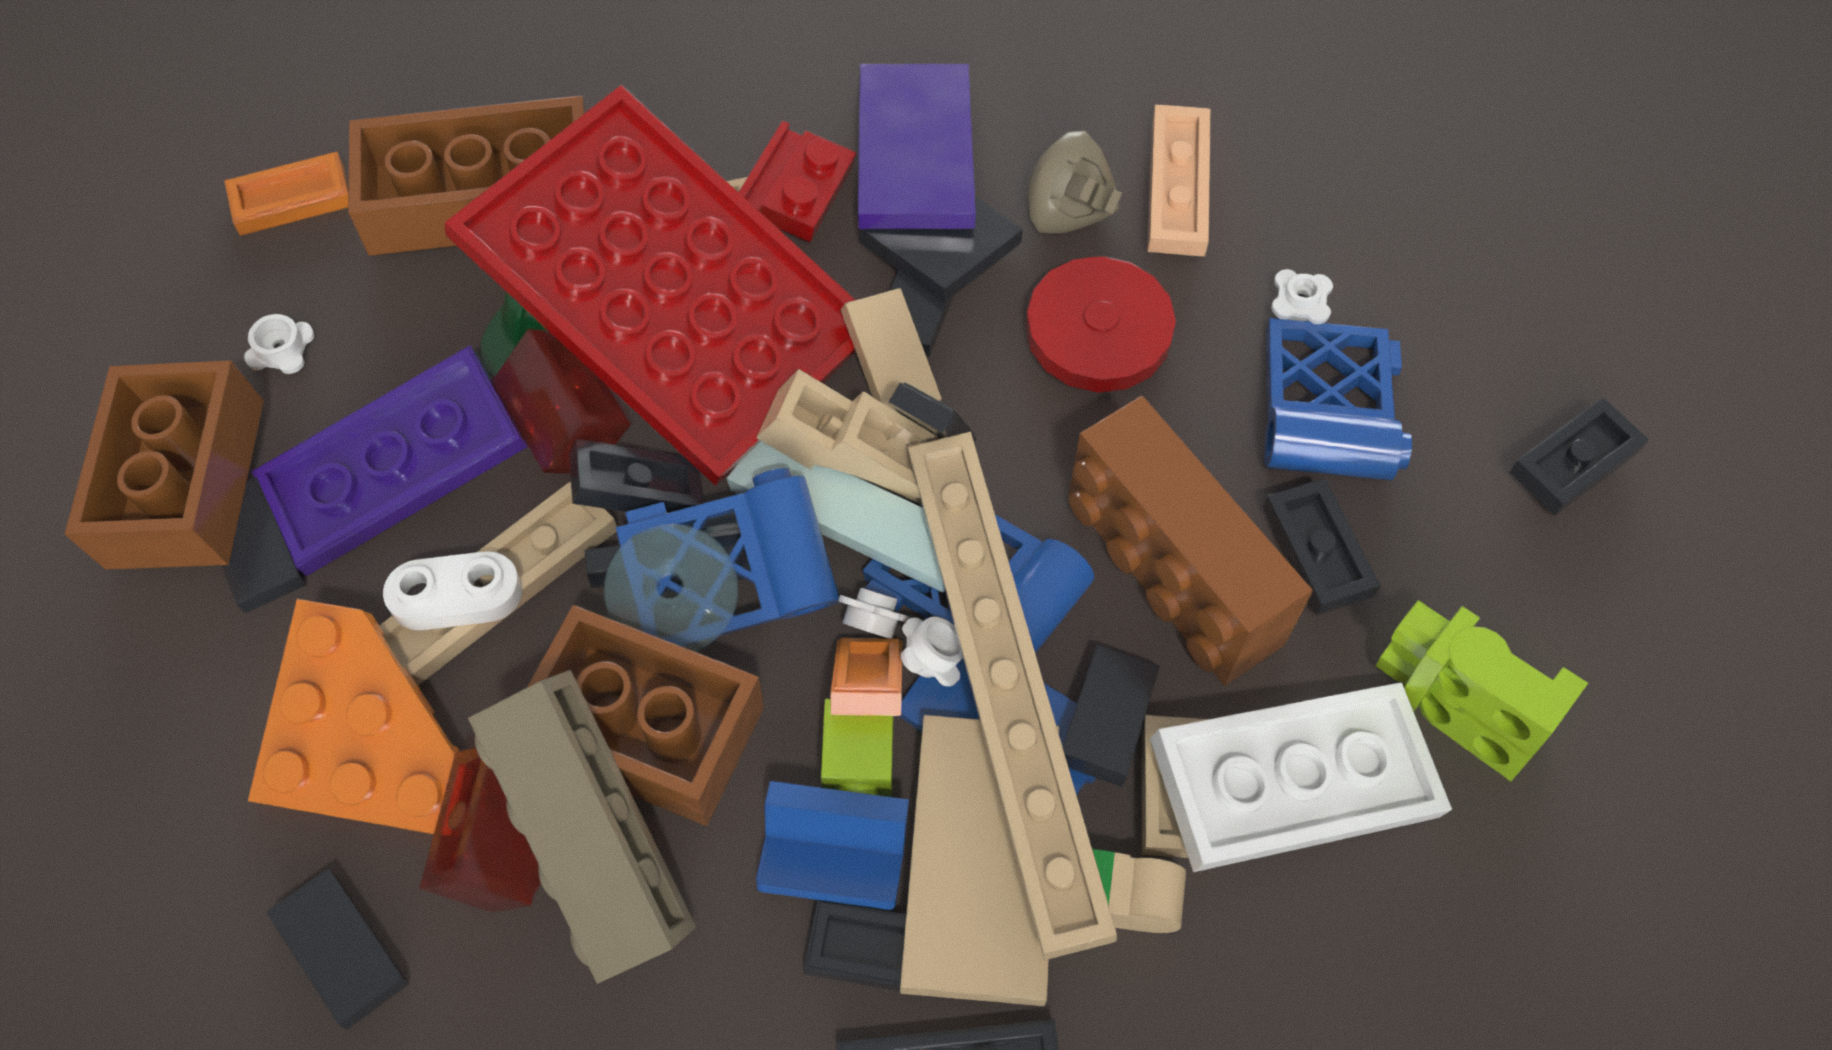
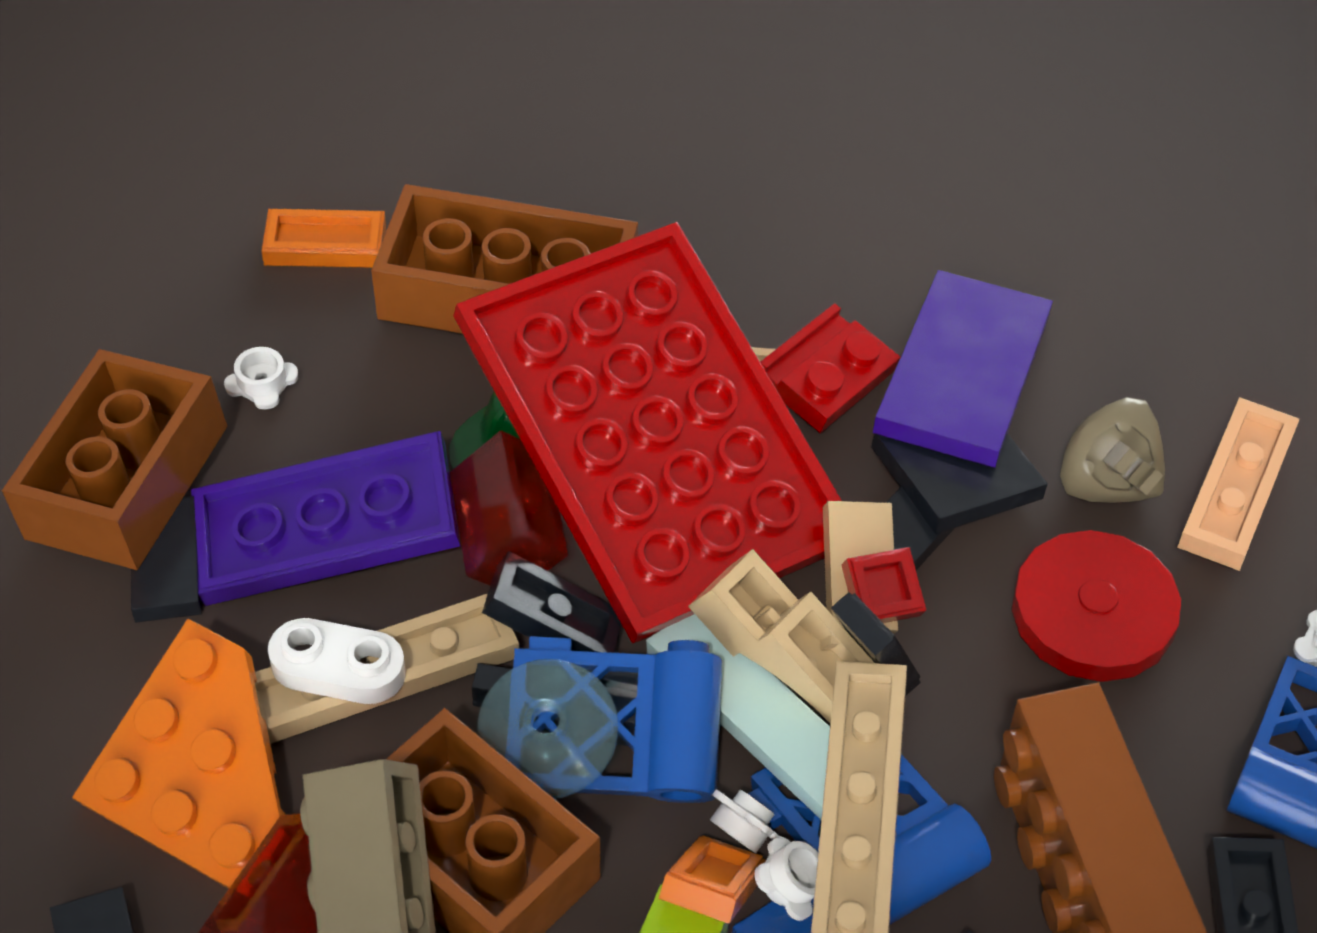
camera: 20 degrees right, 10 degrees down
(919, 361) = (886, 584): none -> red tile

